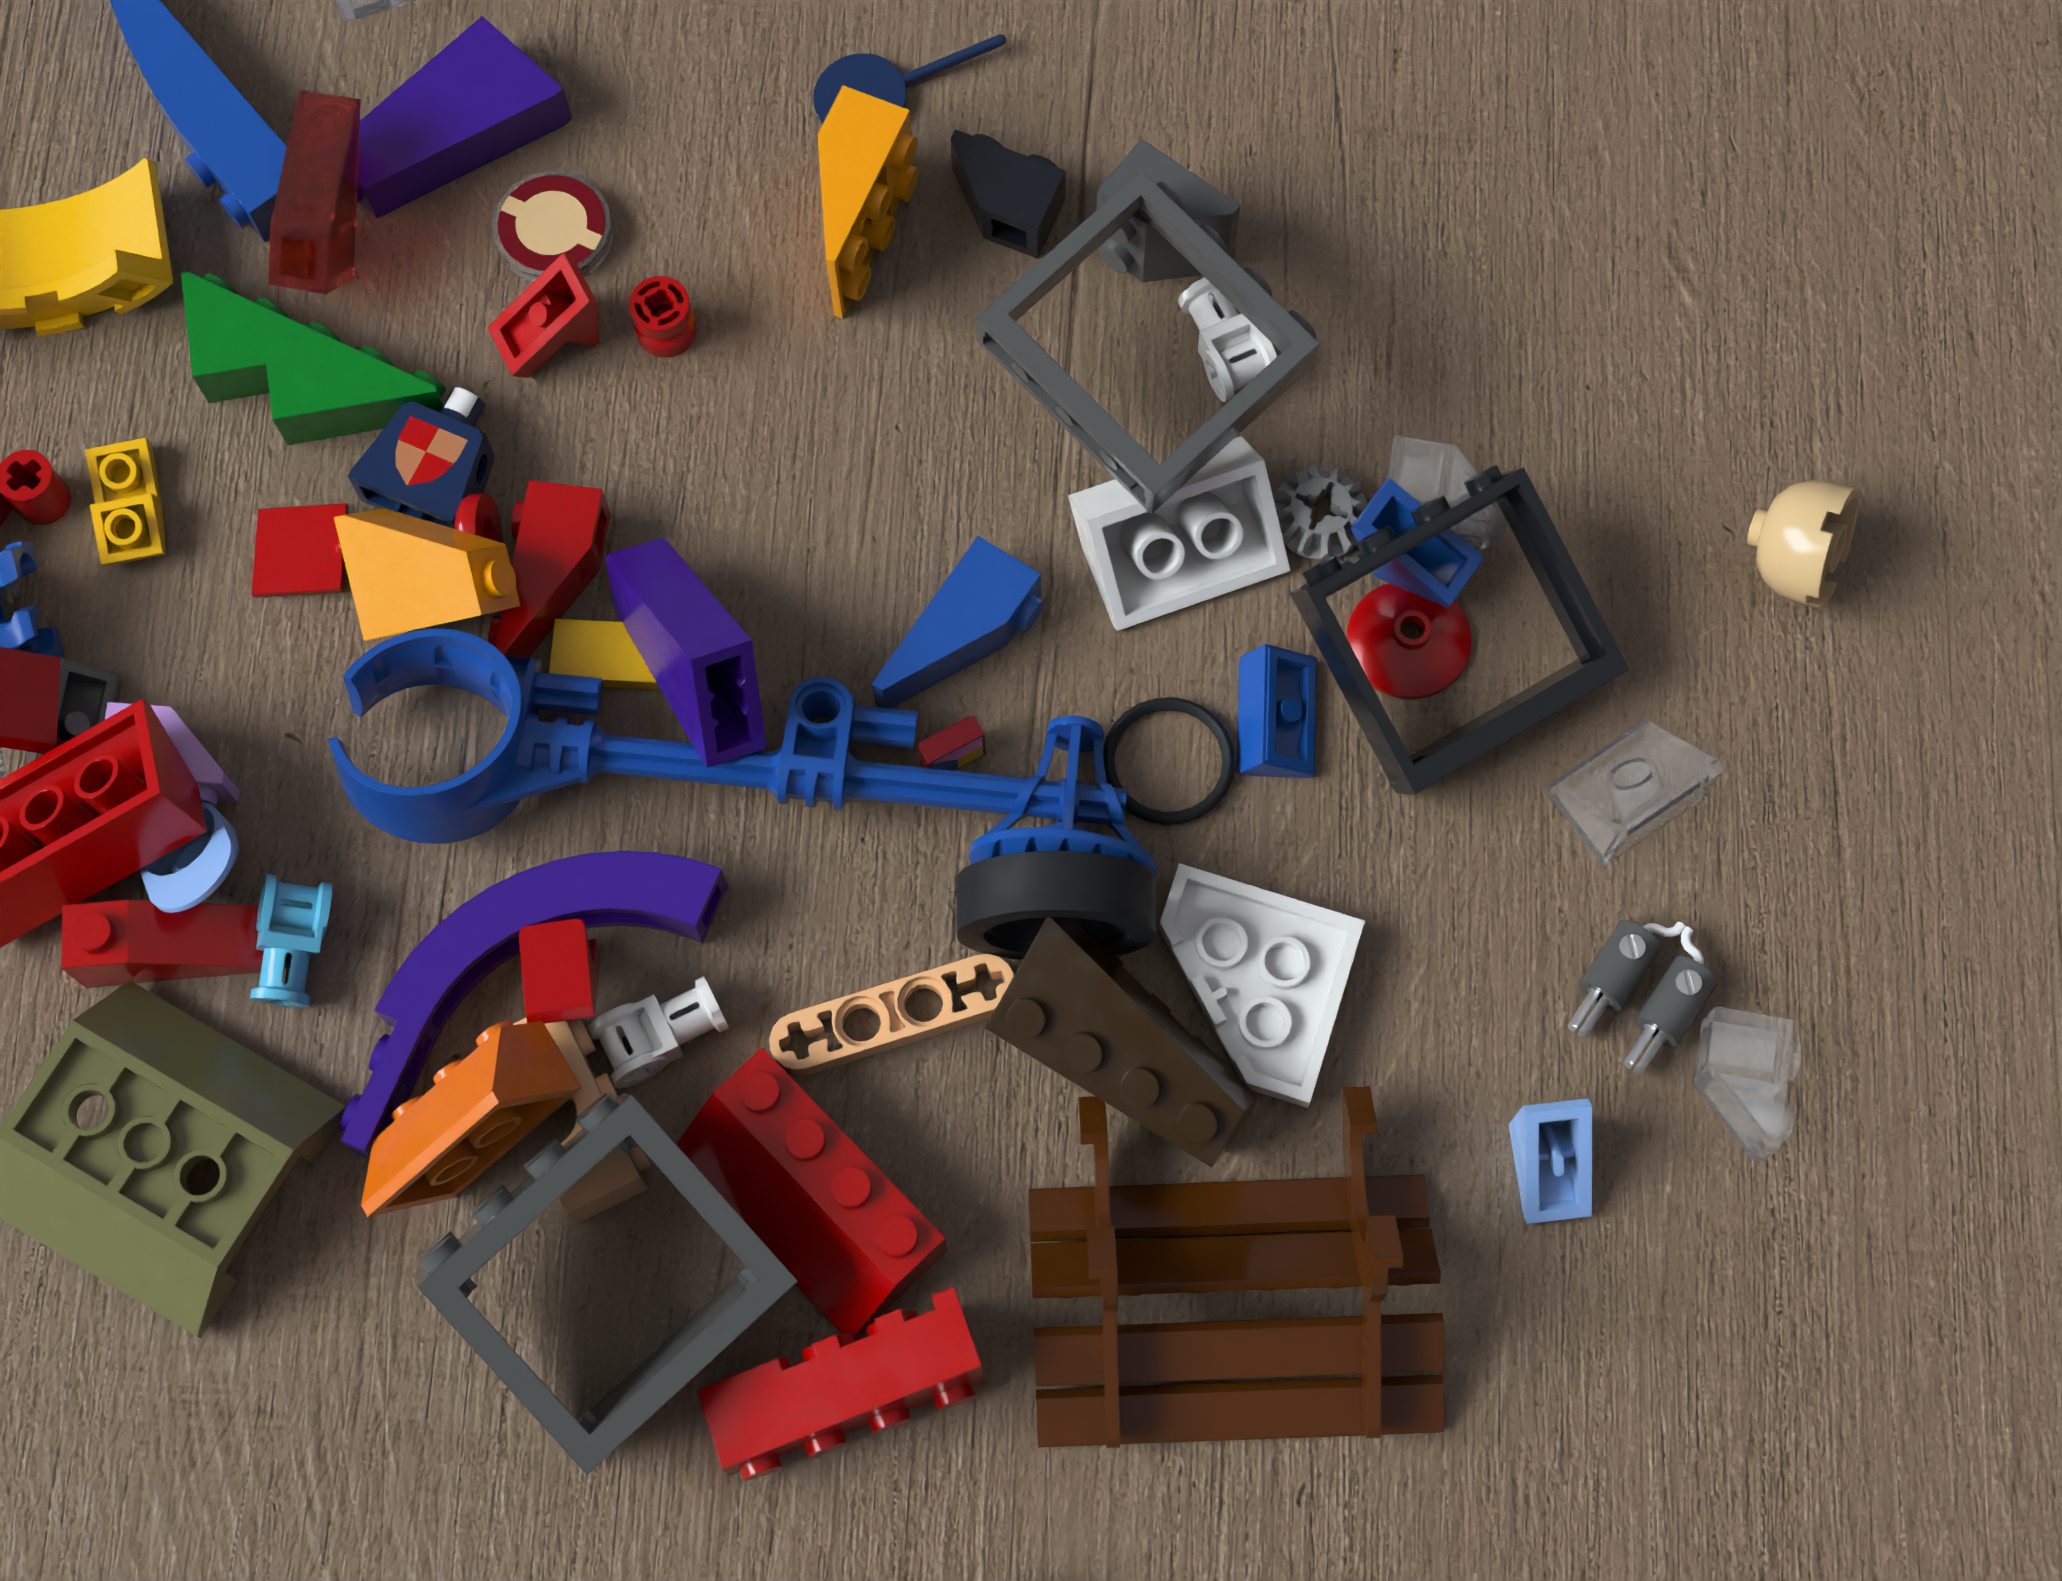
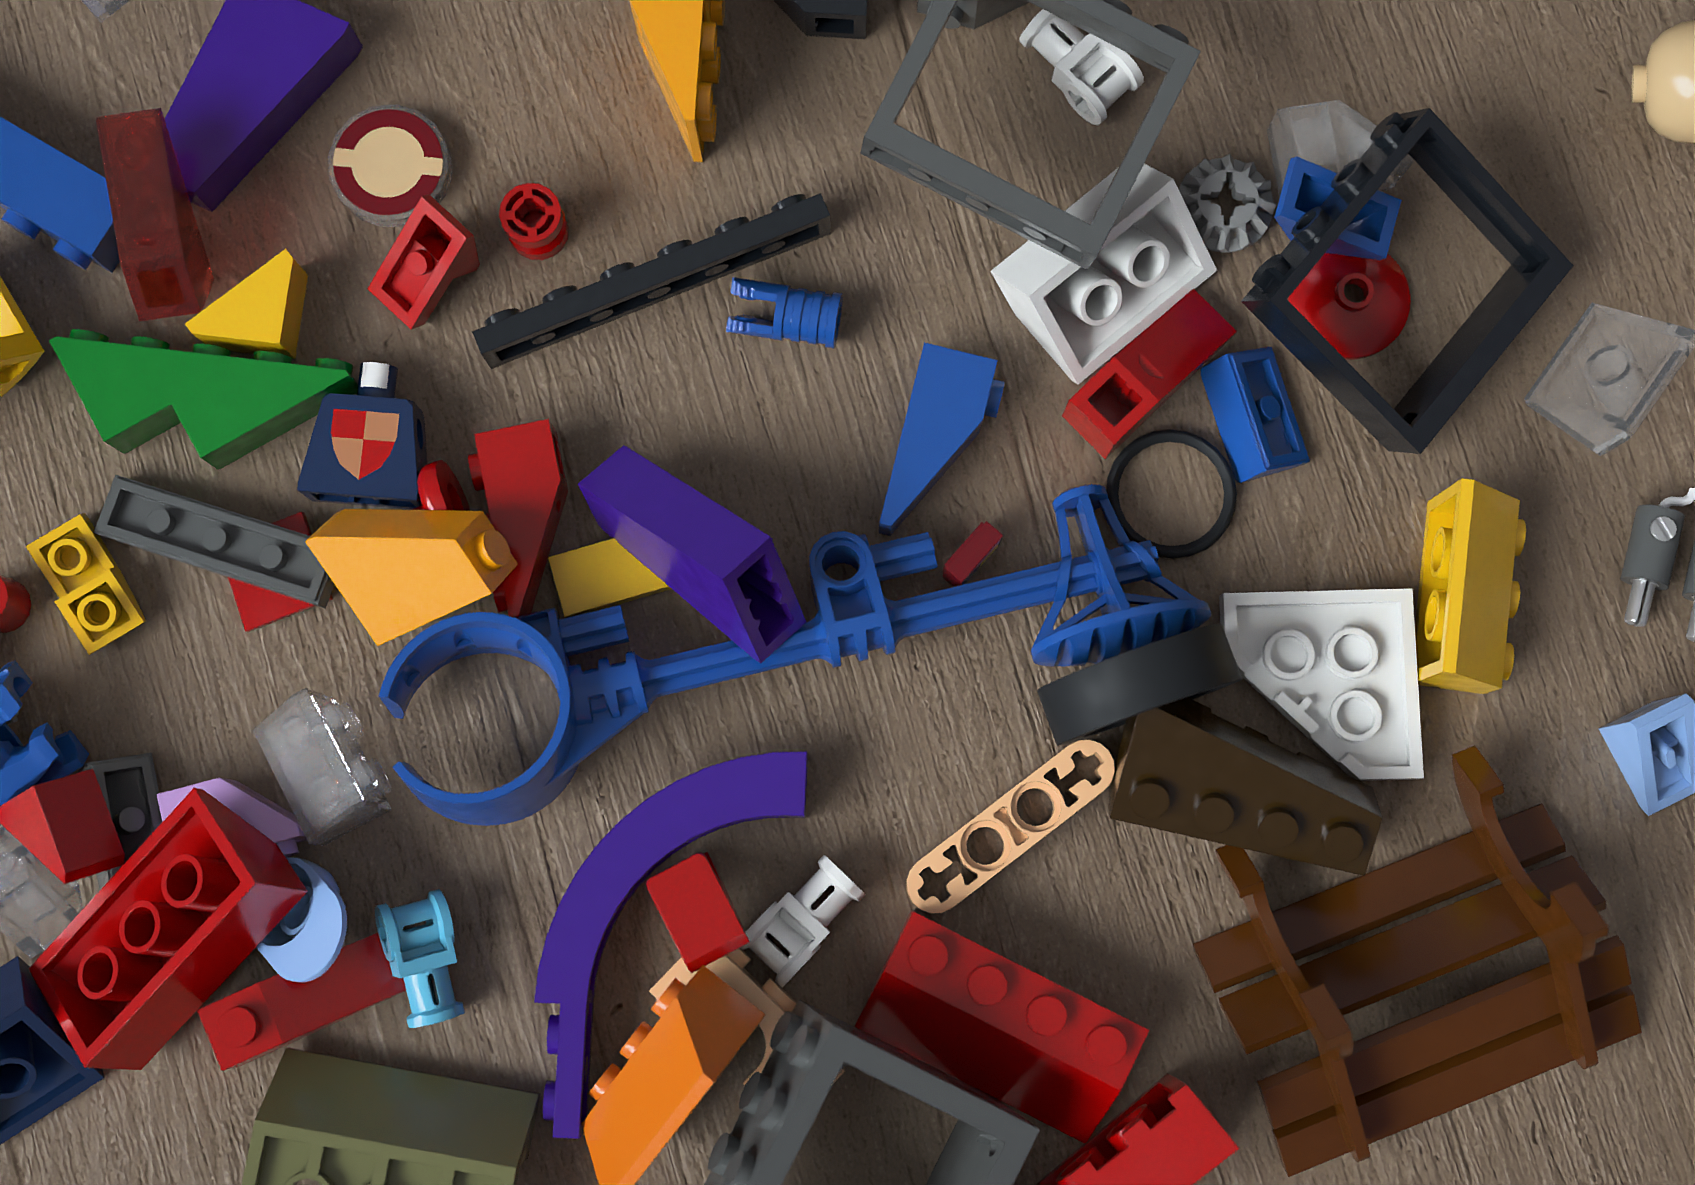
camera: 20 degrees left, 10 degrees up
(255, 501) = (213, 540): none -> dark grey tile
(270, 731) = (322, 766): none -> clear slope
(380, 311) = (258, 311): none -> yellow slope
(746, 405) = (632, 288): none -> black plate
(870, 477) = (797, 315): none -> blue hinge
(1181, 637) = (1147, 373): none -> red slope
(1420, 939) = (1468, 588): none -> yellow slope

